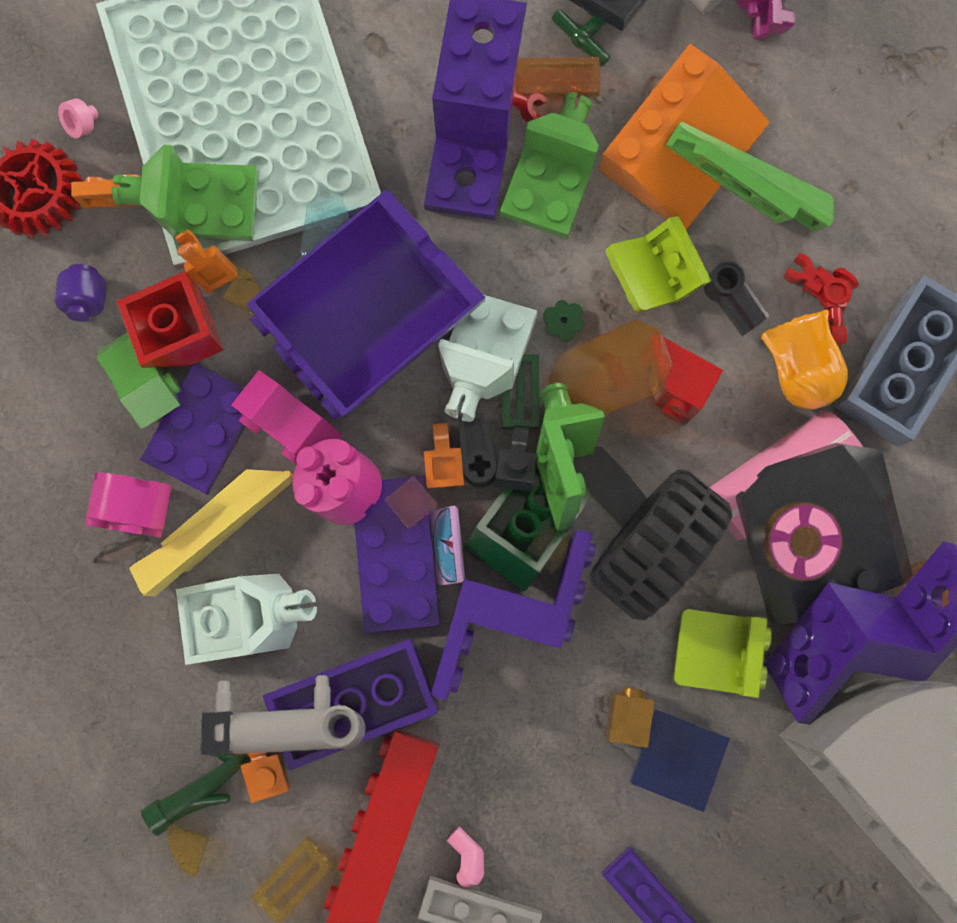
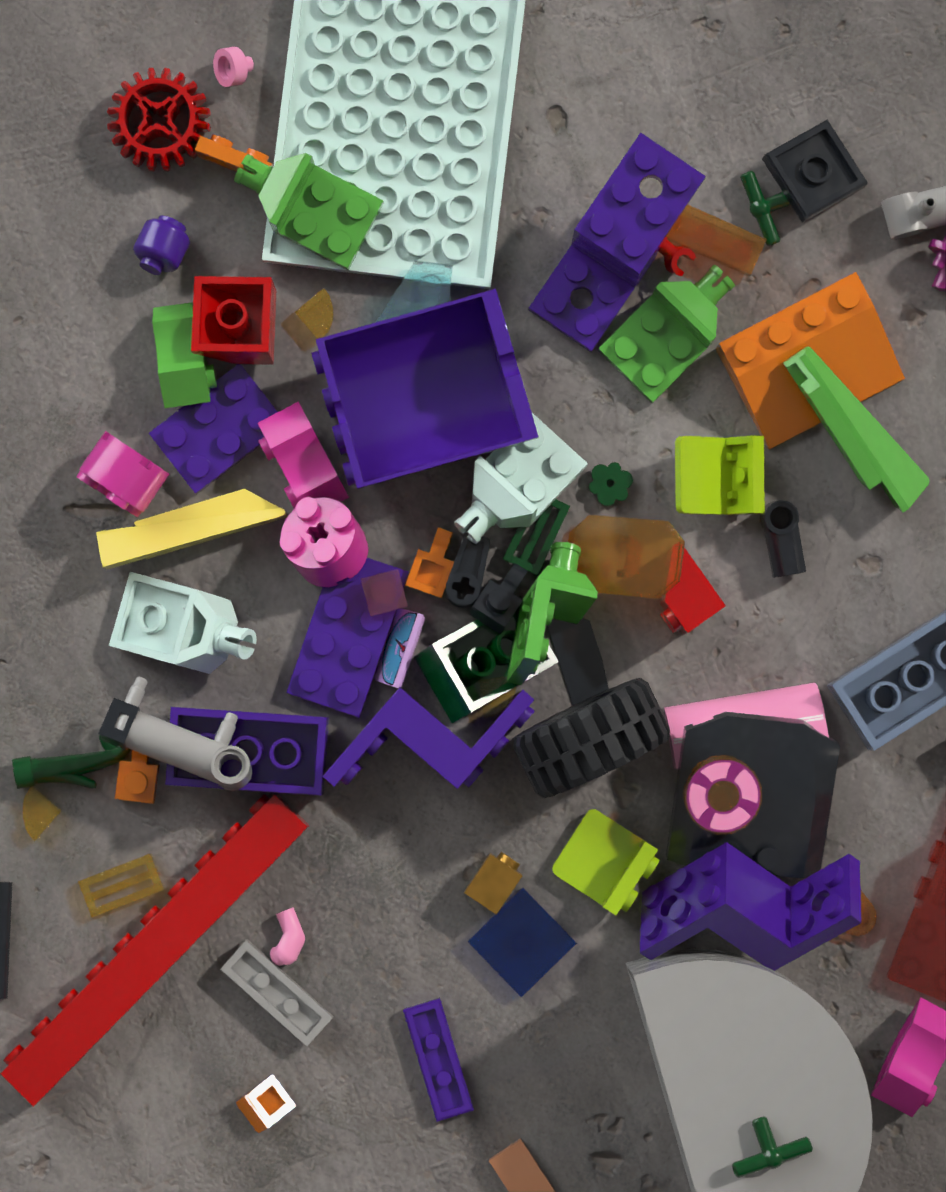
camera: 25 degrees right, 5 degrees up
(206, 267) = (292, 277): orange plate -> none
(807, 360) = (819, 630): light orange piece -> none
(831, 291) = (878, 573): red piece -> none

